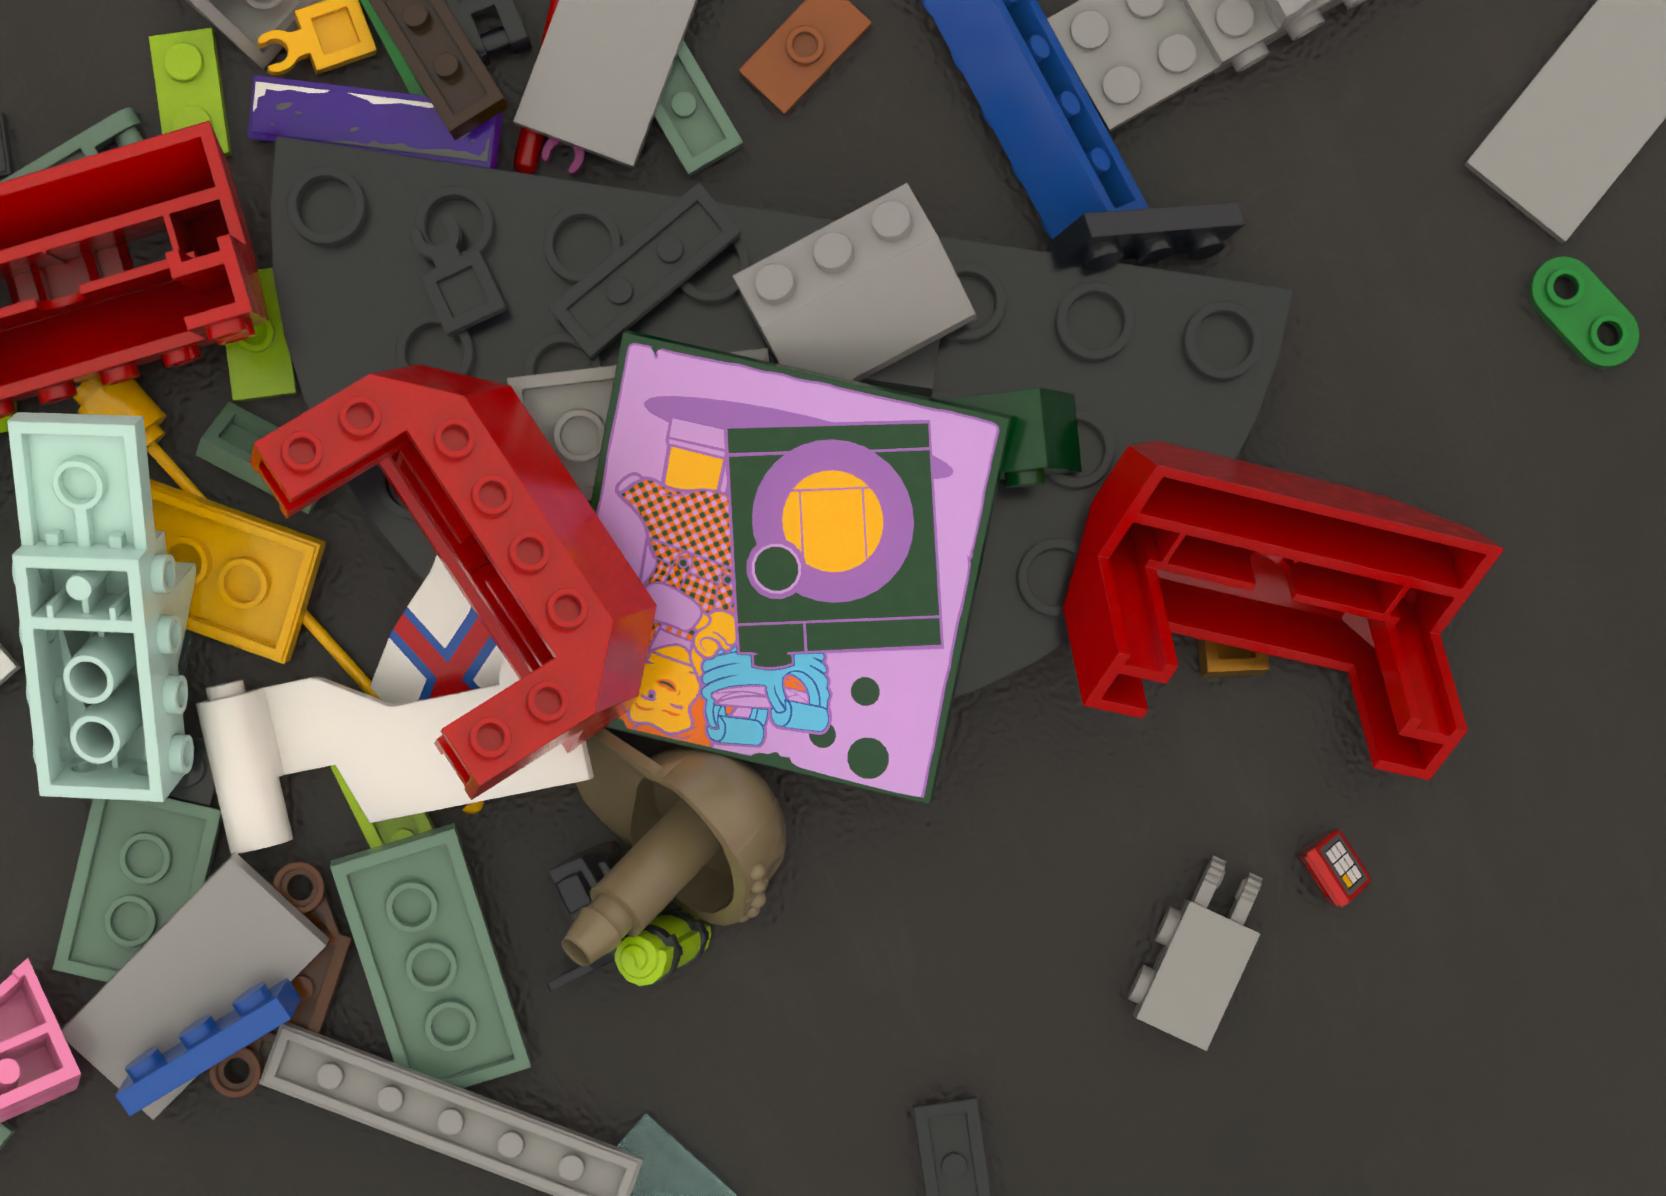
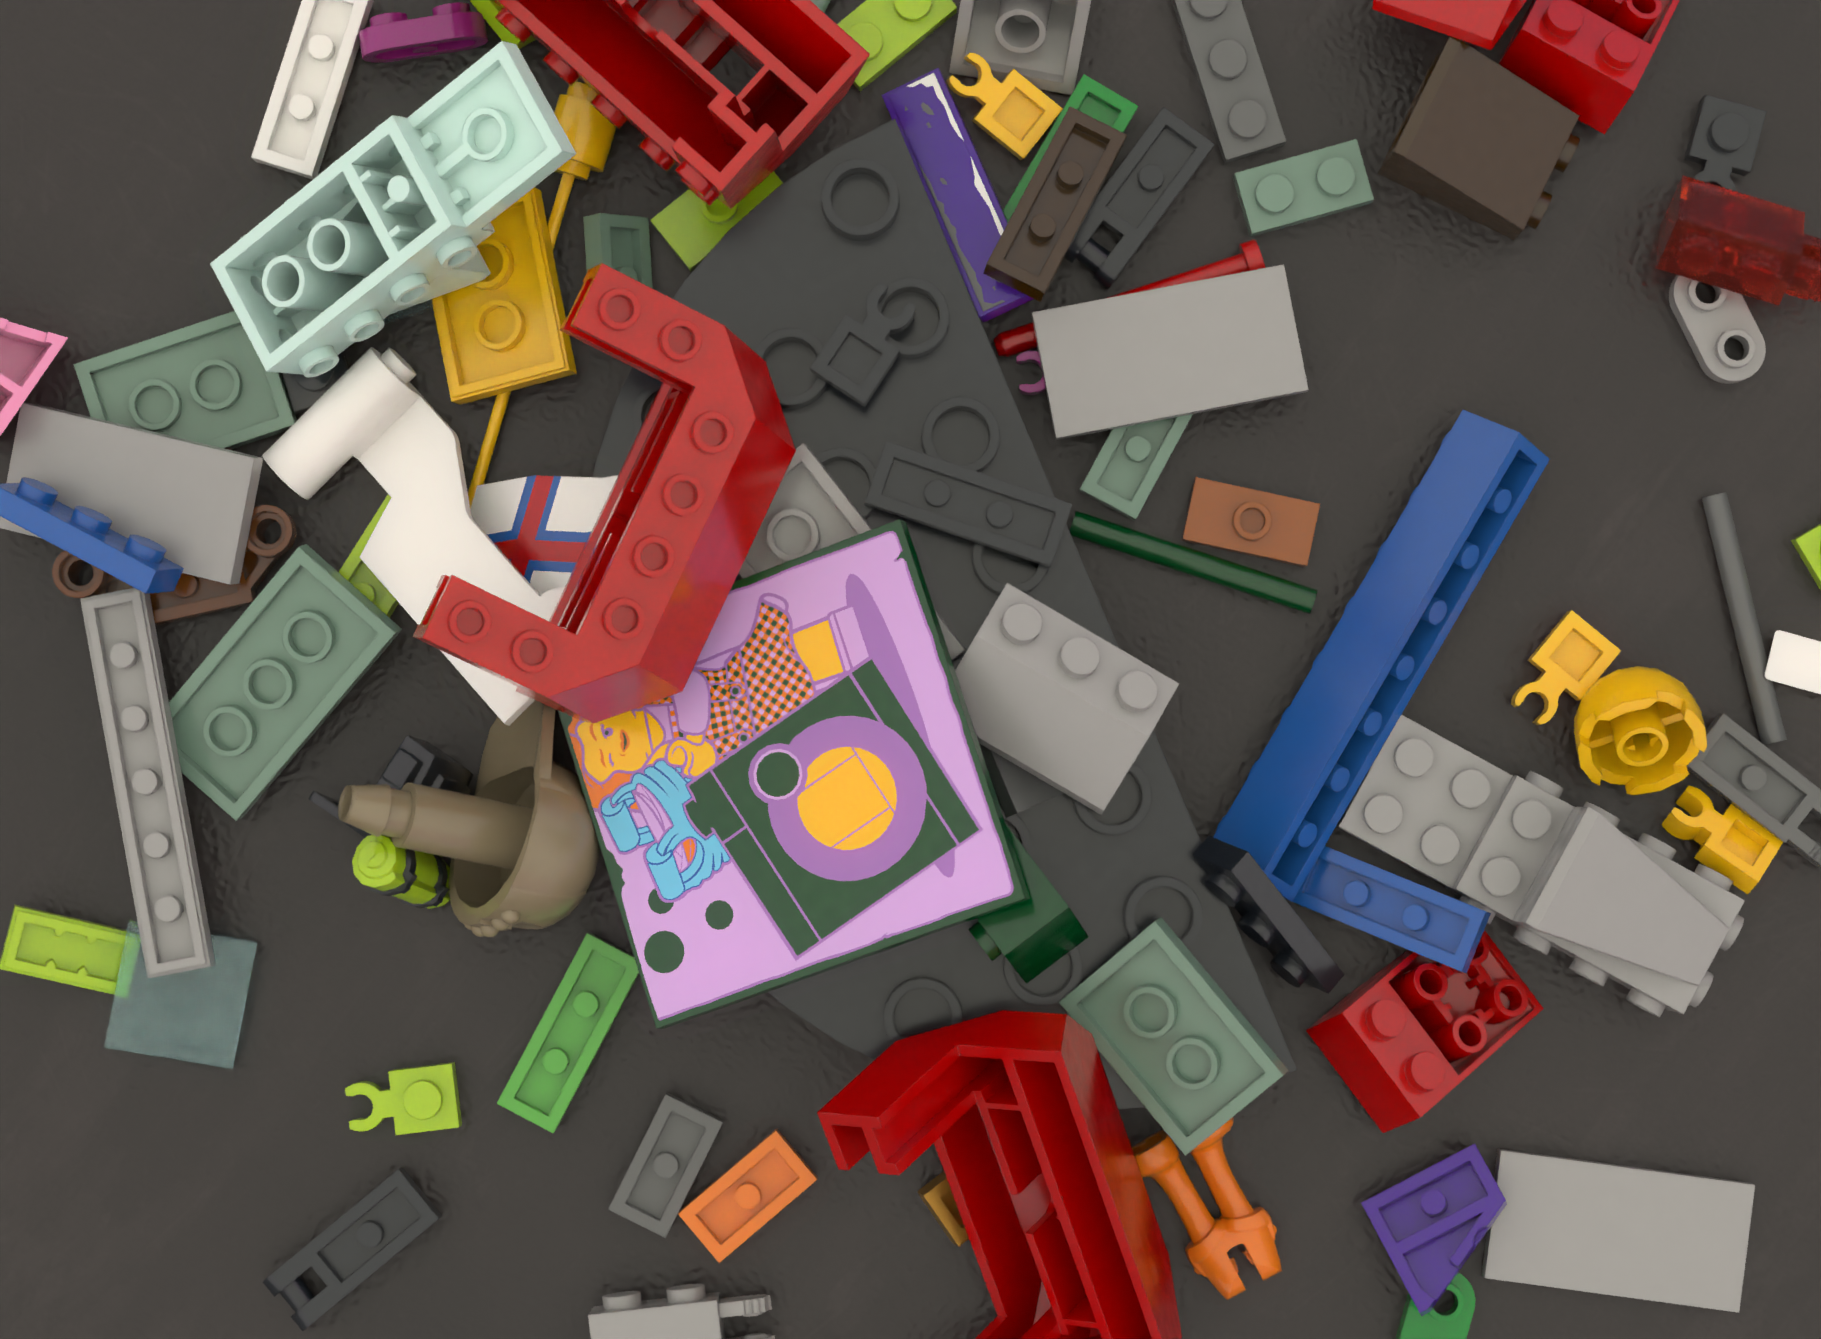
camera: 60 degrees right, 0 degrees up
(810, 117) = (1193, 562): none -> dark green bar
(864, 1057) = (417, 1099): none -> lime plate
(886, 890) = (570, 1033): none -> bright green plate
(1049, 877) = (666, 1165): none -> dark grey plate
(1117, 823) = (748, 1195): none -> orange plate
(1202, 371) = (1174, 1036): none -> sand green plate
(1207, 125) = (1393, 909): none -> blue plate
(1319, 159) = (1422, 1030): none -> red slope
(1392, 419) = (1212, 1237): none -> orange piece
(1493, 252) = (1436, 1222): none -> dark purple wing

